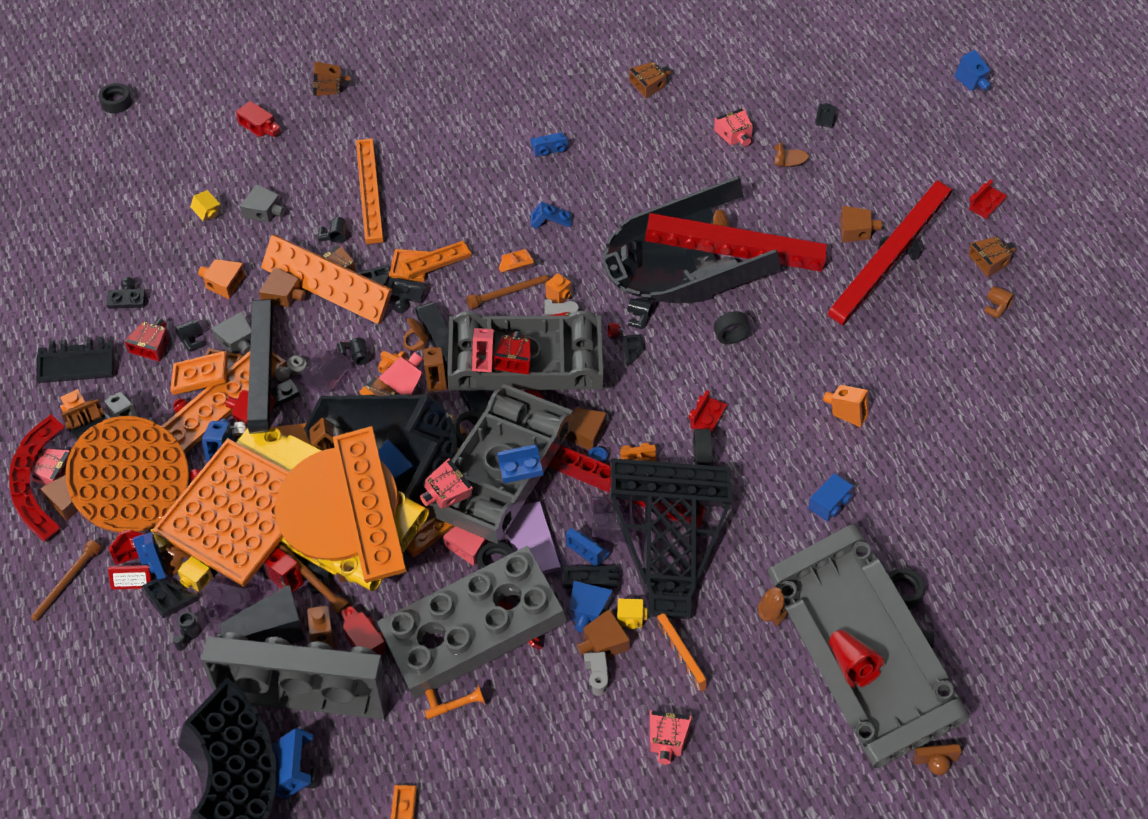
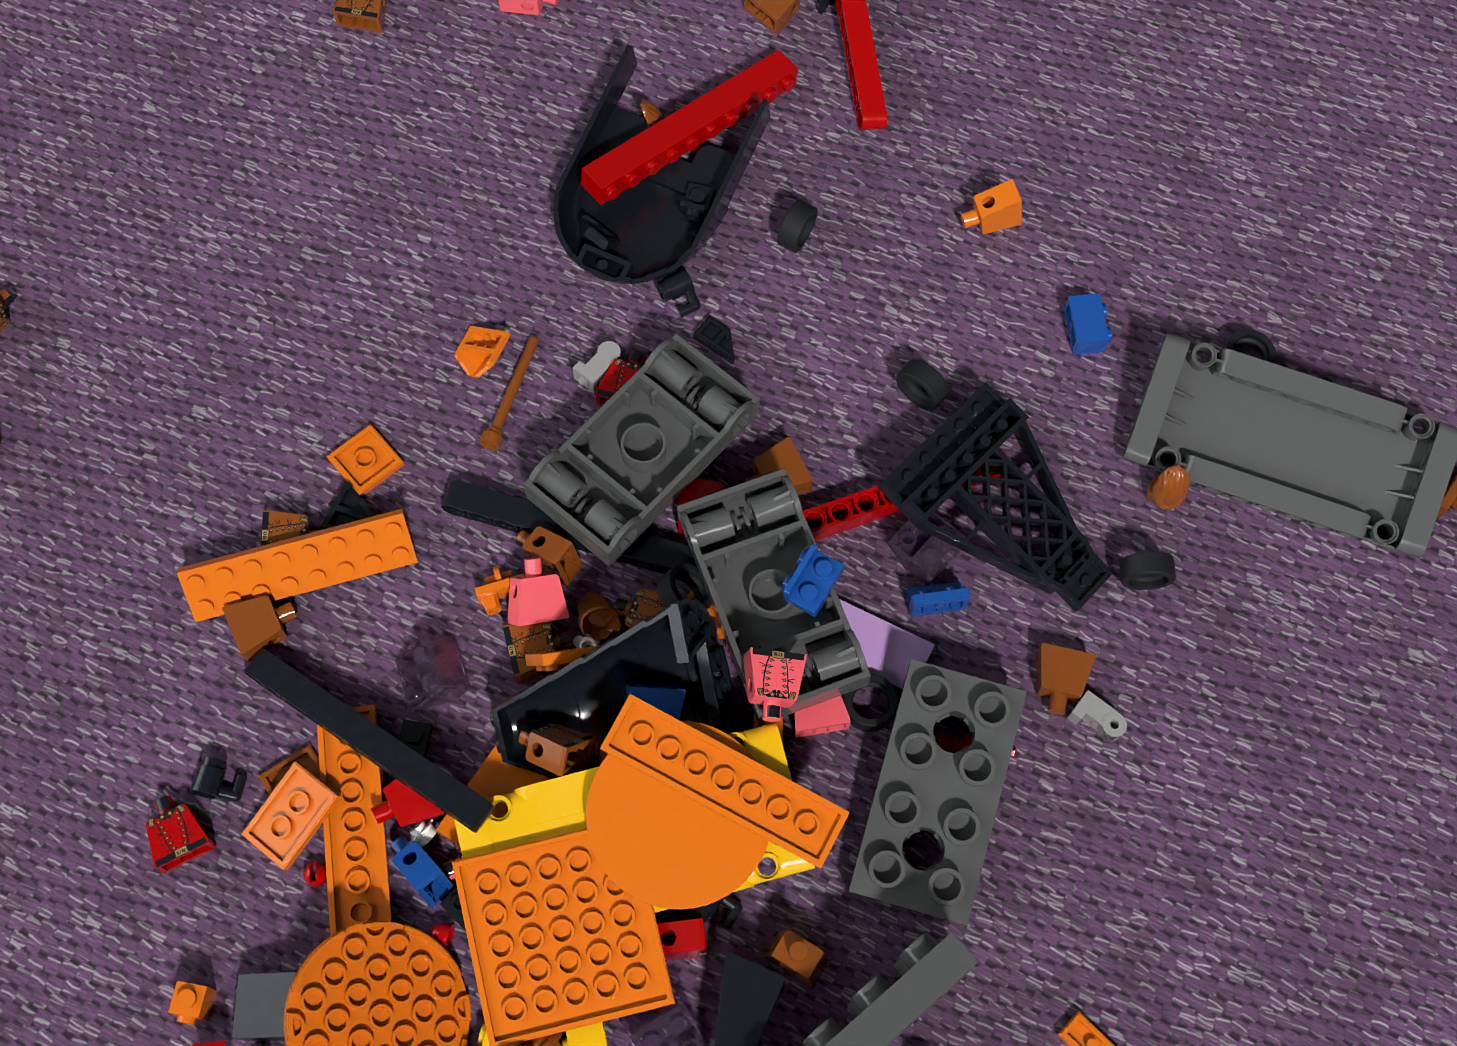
camera: 50 degrees left, 15 degrees up
(75, 362) = (118, 951): black hinge -> none
(76, 416) = (226, 1023): dark orange hinge -> none
(119, 405) = (263, 952): torso -> none
(127, 297) = (74, 812): black plate -> none
(205, 205) = (31, 609): yellow brick -> none
(222, 276) = (165, 677): orange torso -> none
(233, 334) = (274, 730): torso -> none
(261, 205) = (99, 545): dark grey torso -> none
(283, 373) = (387, 719): light grey plate -> none
(336, 232) = (232, 495): black piece -> none
(338, 603) = (775, 912): dark orange piece -> none
(357, 350) = (439, 614): black piece -> none
(361, 631) = (839, 917): red hinge -> none
(369, 191) = (207, 412): orange plate -> none
(404, 291) = (404, 495): black plate -> none
(419, 330) = (486, 528): dark orange piece -> none
(435, 259) = (391, 428): orange tile -> none
(436, 710) = (1002, 914): orange piece -> none
(482, 346) = (621, 488): coral torso -> none
(512, 354) = (652, 462): red torso -> none
(547, 211) = (448, 262): blue bracket -> none
(549, 144) = (344, 177): blue bracket -> none
(558, 289) = (570, 341): orange brick -> none
(588, 603) = (1010, 657): blue torso -> none
(593, 575) = (974, 627): black hinge -> none
(598, 454) = (824, 490): blue tile -> none
(612, 330) = (676, 329): red hinge -> none
(631, 613) = (1057, 624): yellow brick -> none
(644, 452) = (870, 454): orange hips -> none
(668, 734) = (1230, 711): coral torso -> none
(682, 652) = (1146, 616): orange tile -> none
(707, 413) = (876, 344): red bracket -> none
(707, 629) = (1147, 570): none -> black tyre
(855, 659) = (1300, 468): red cone -> none

